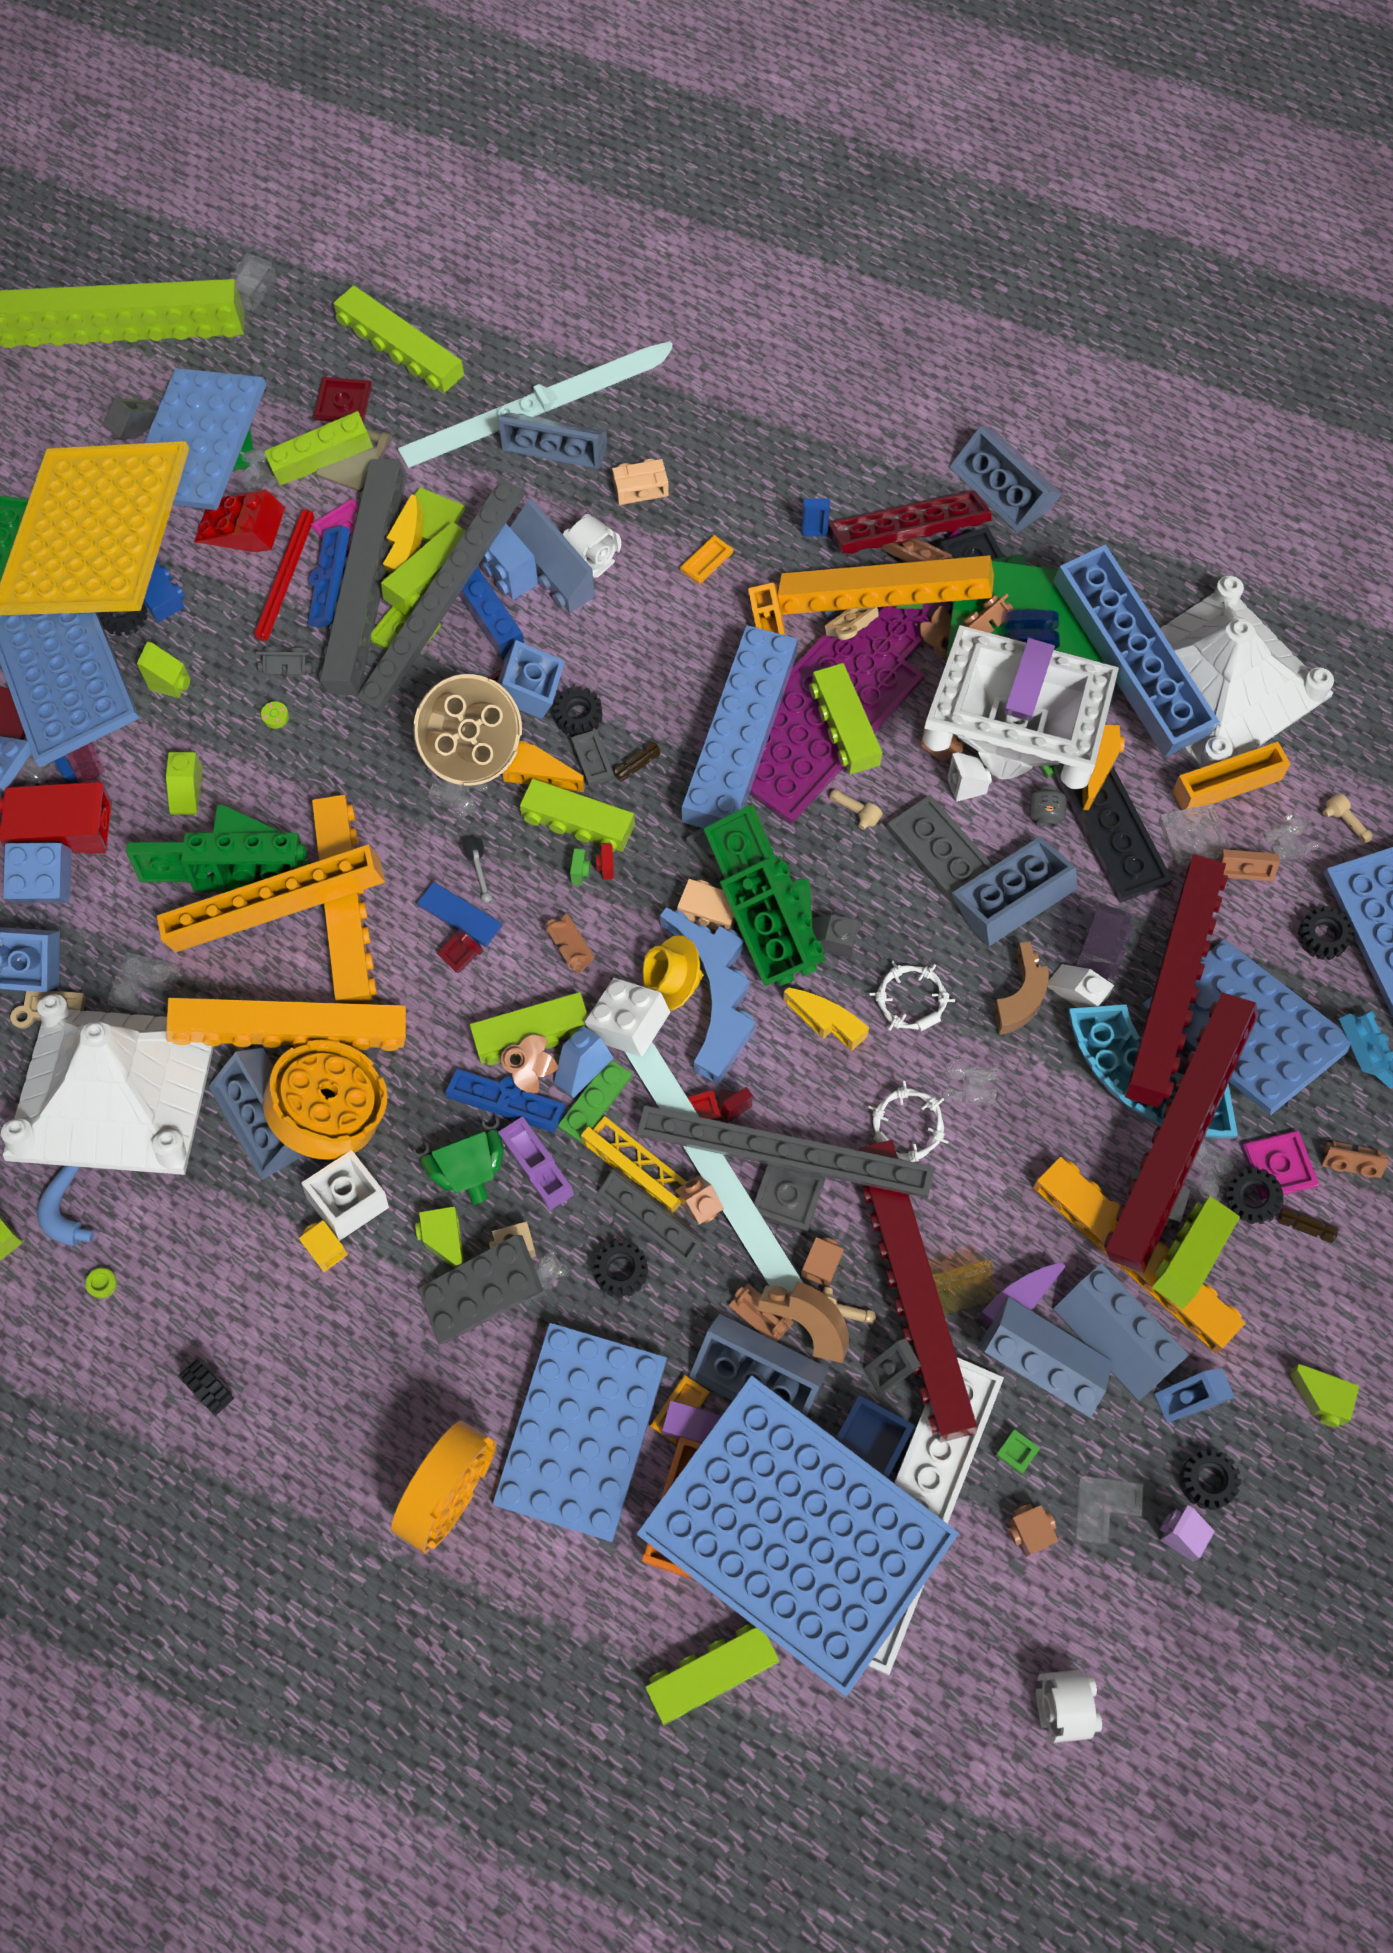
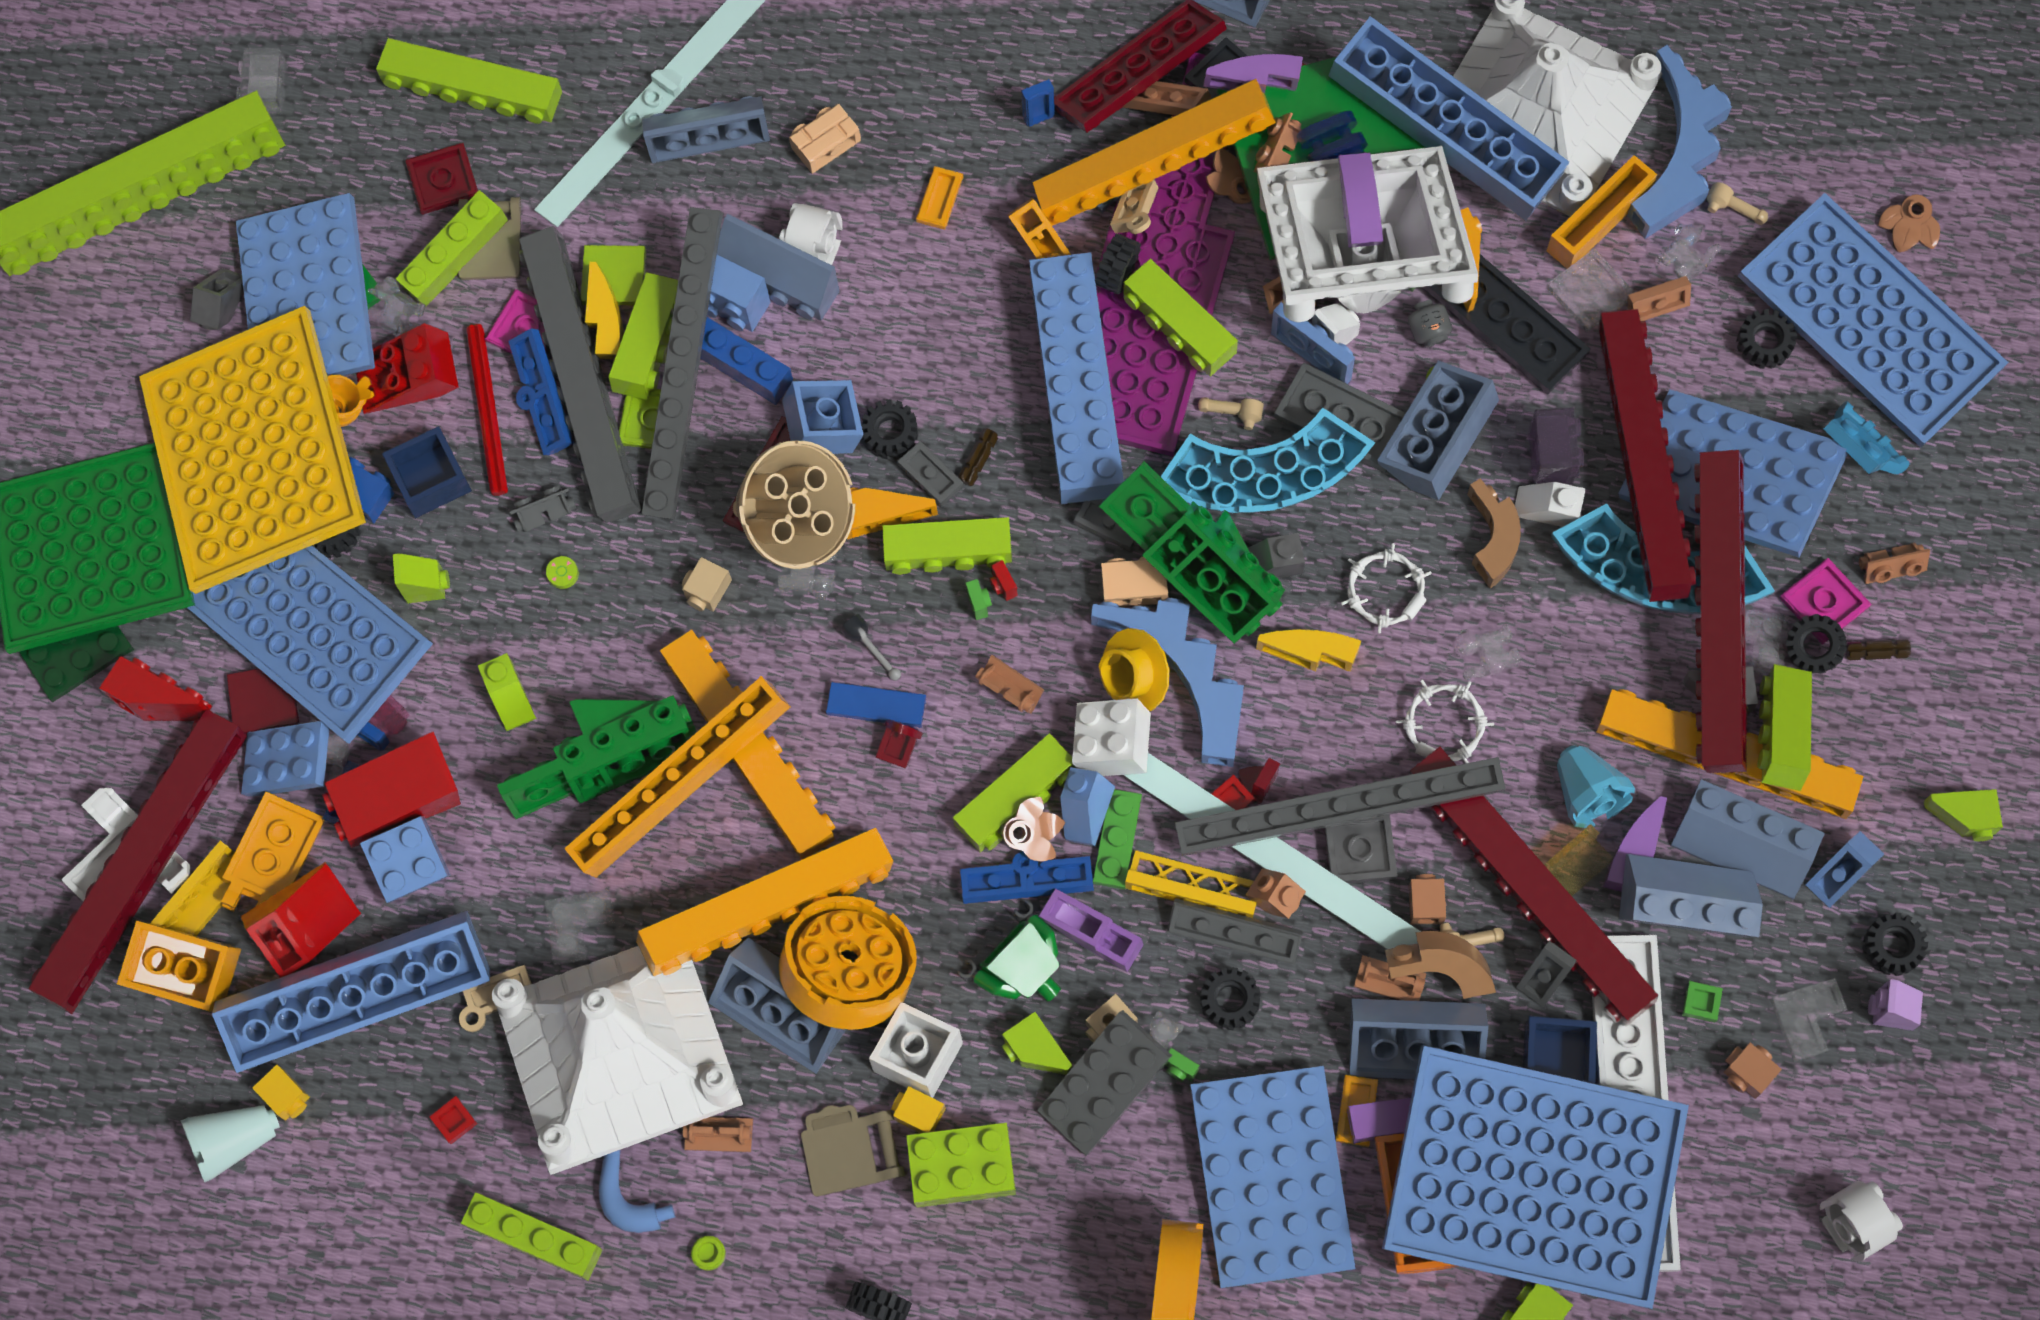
camera: 20 degrees left, 5 degrees up
(159, 1192) = (719, 1135): none -> nougat hinge
(183, 518) = (349, 395): none -> light orange hat
(212, 598) = (426, 472): none -> dark blue piece
(248, 1249) = (841, 1149): none -> dark tan piece
(333, 1304) = (961, 1165): none -> lime brick
(375, 768) = (705, 585): none -> tan brick
(551, 1305) = (1181, 1067): none -> bright green plate
(815, 655) = (1117, 263): none -> black tyre
(858, 866) = (1267, 475): none -> medium azure brick
(943, 783) = (1314, 345): none -> medium blue plate
(1004, 555) = (1269, 70): none -> medium lavender slope
(1006, 1229) = (1591, 786): none -> medium azure cone
(1309, 783) = (1696, 113): none -> medium blue arch

